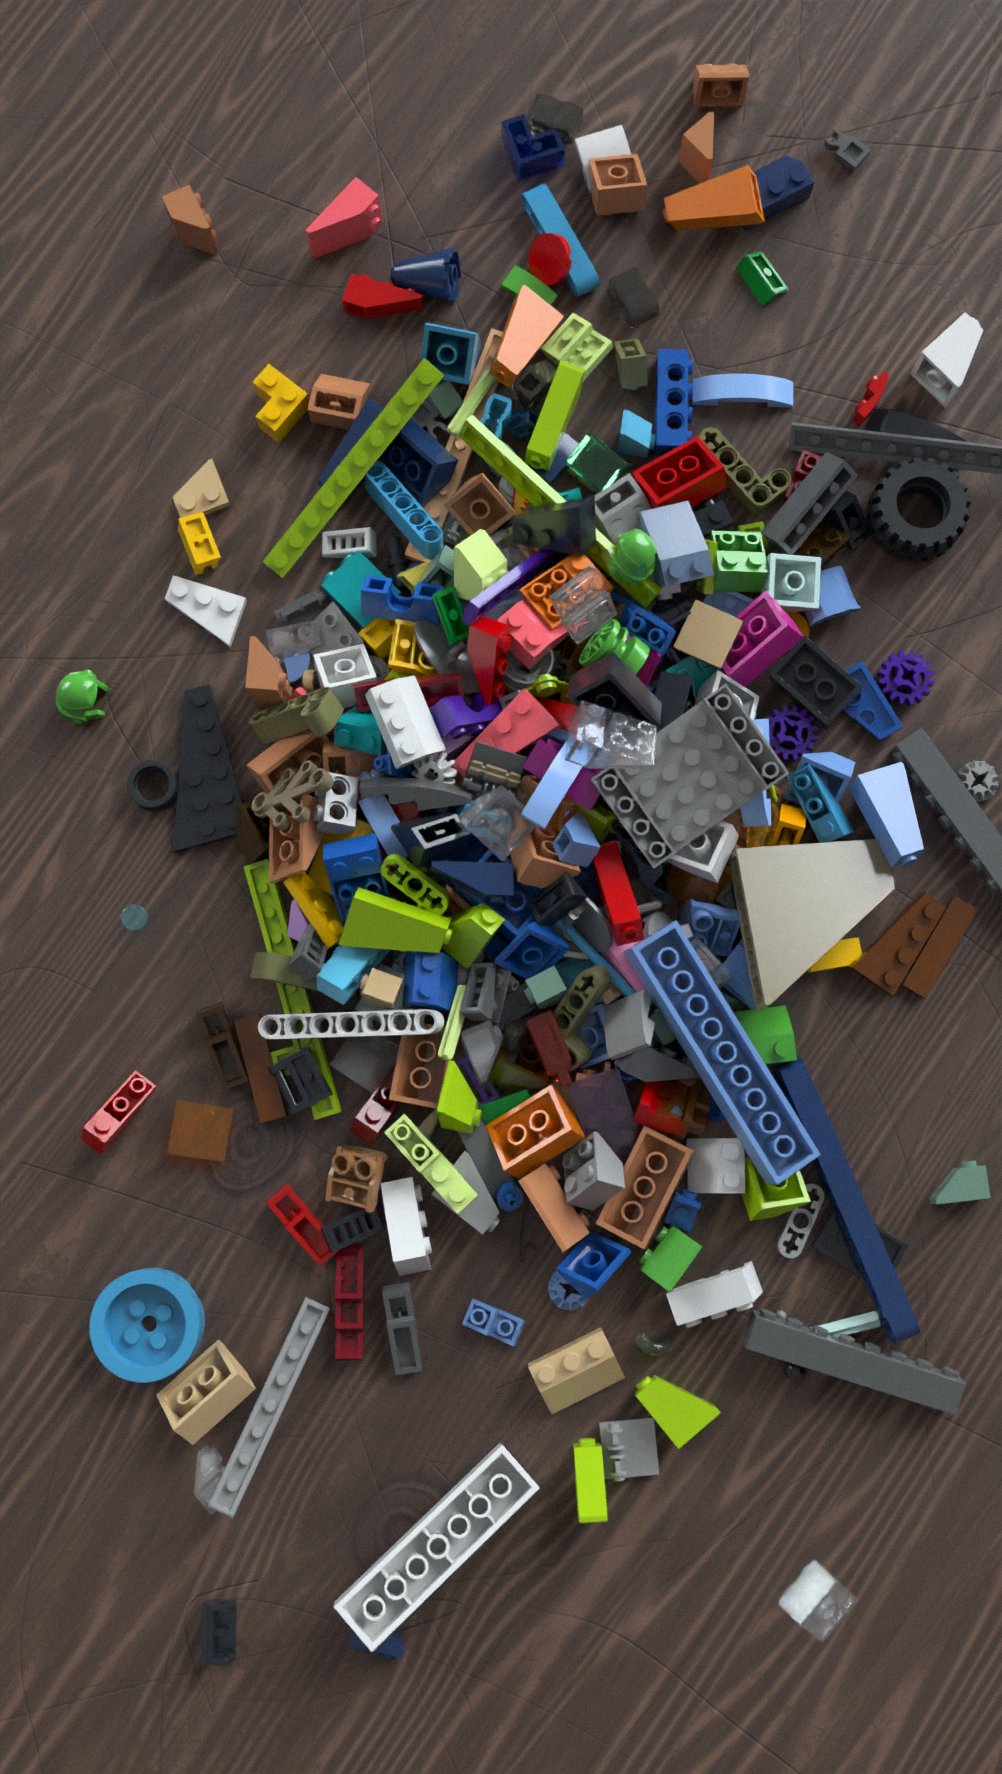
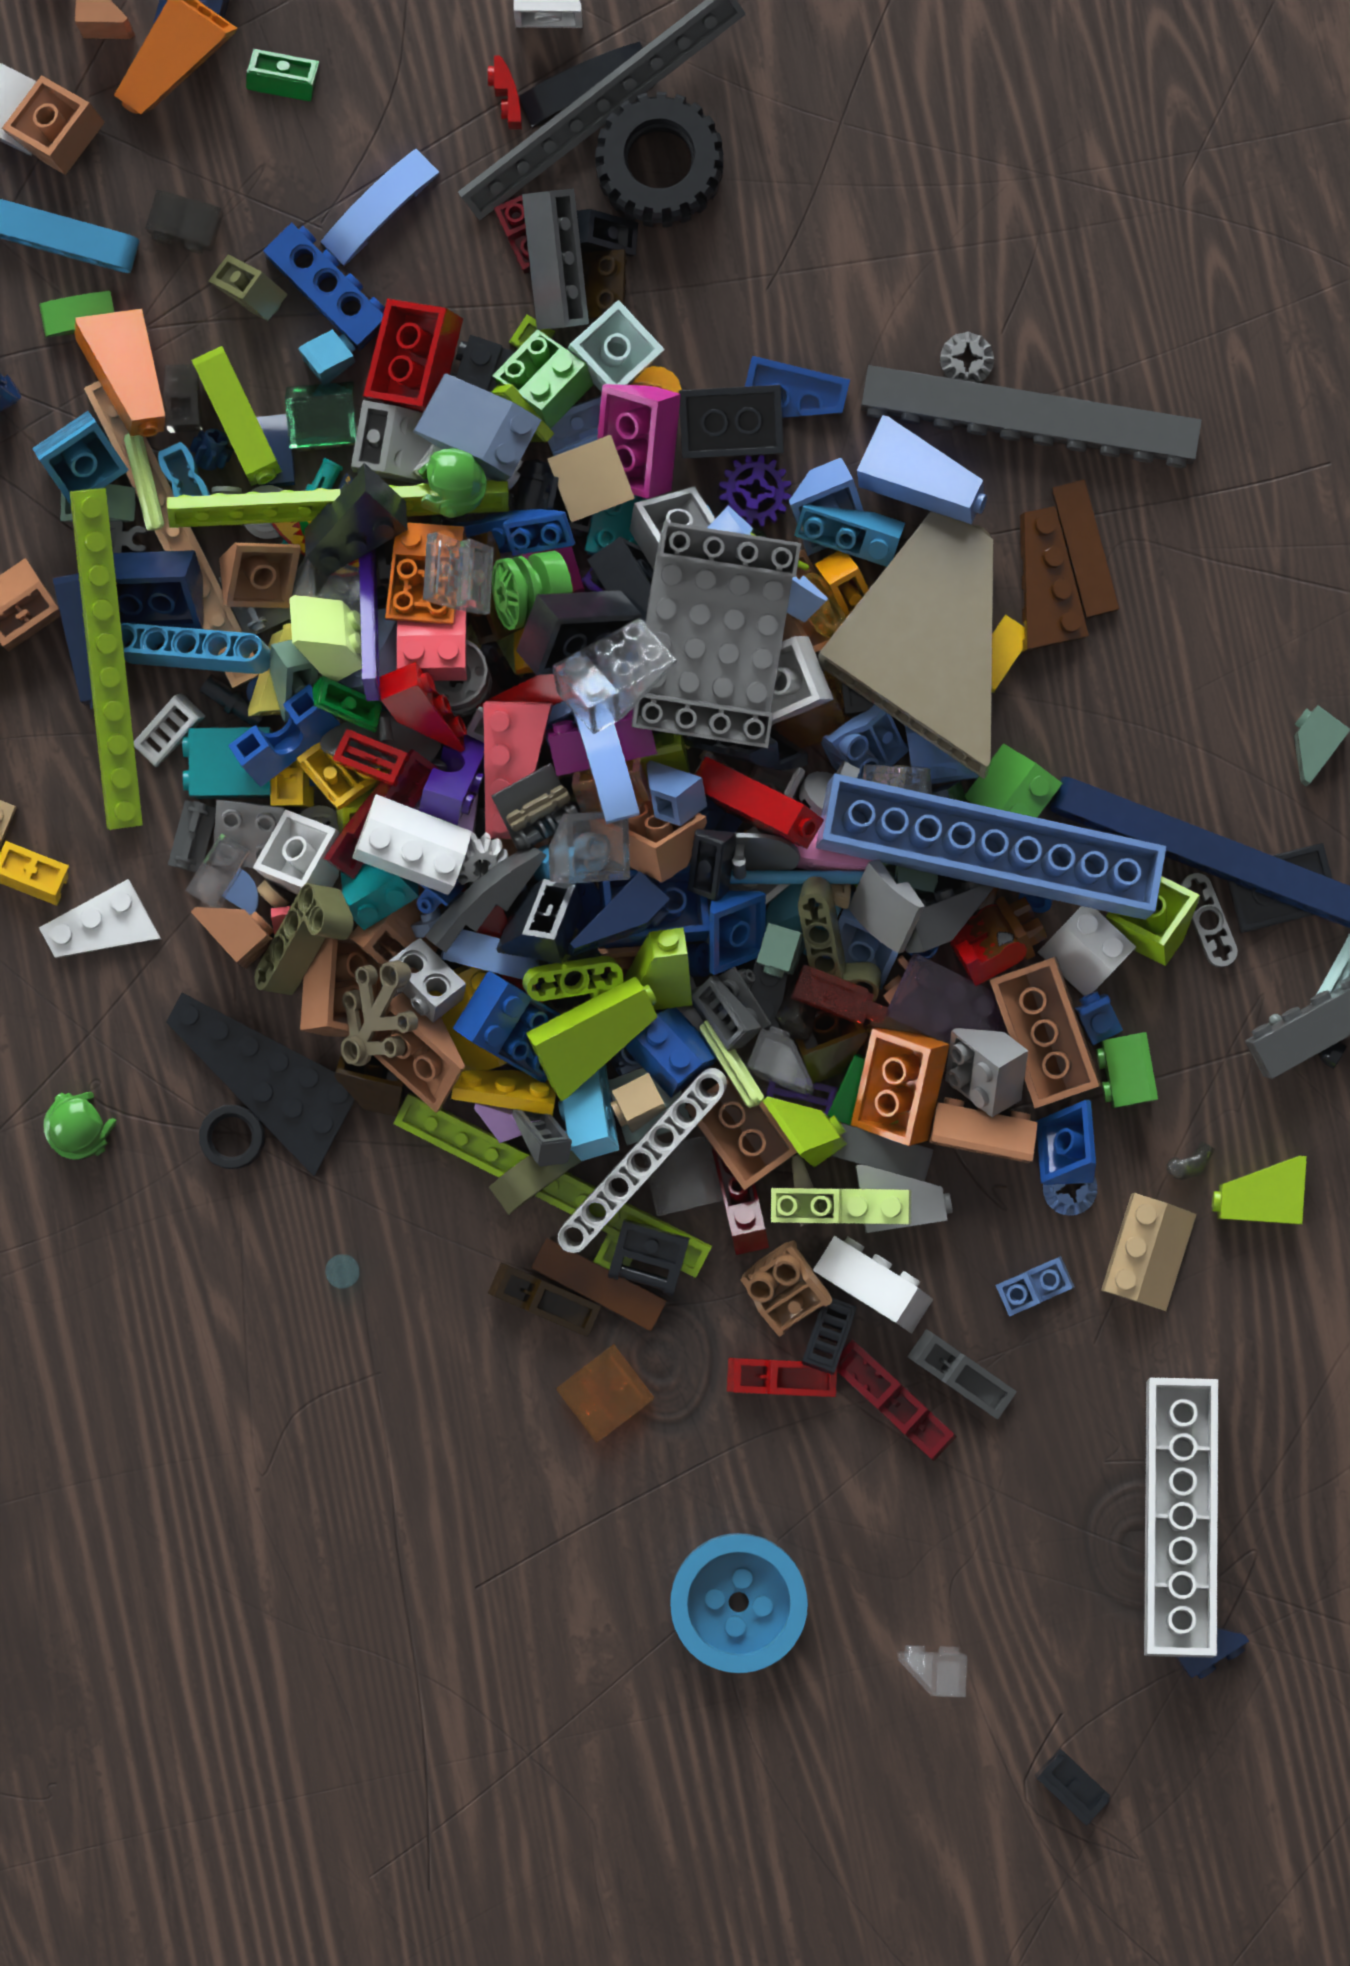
camera: 45 degrees left, 5 degrees up
(117, 1113) = (515, 1454): red slope -> none
(205, 1392) = (849, 1606): tan slope -> none
(268, 1408) = (917, 1558): light grey tile -> none
(439, 674) = (397, 768): none -> red tile
(509, 1196) = (935, 1164): blue tile -> none
(547, 685) = (498, 678): lime plate -> none
(550, 258) = (69, 265): red tile -> none
(577, 345) = (181, 321): yellowish green slope -> none
(589, 1481) = (1254, 1330): lime slope -> none
(629, 1448) = (1261, 1269): light grey hinge -> none
(715, 1295) = (1200, 1062): white wedge -> none
(740, 468) = (453, 286): olive beam -> none
(834, 597) = (664, 319): medium blue slope -> none
(901, 669) = (792, 326): dark purple gear -> none

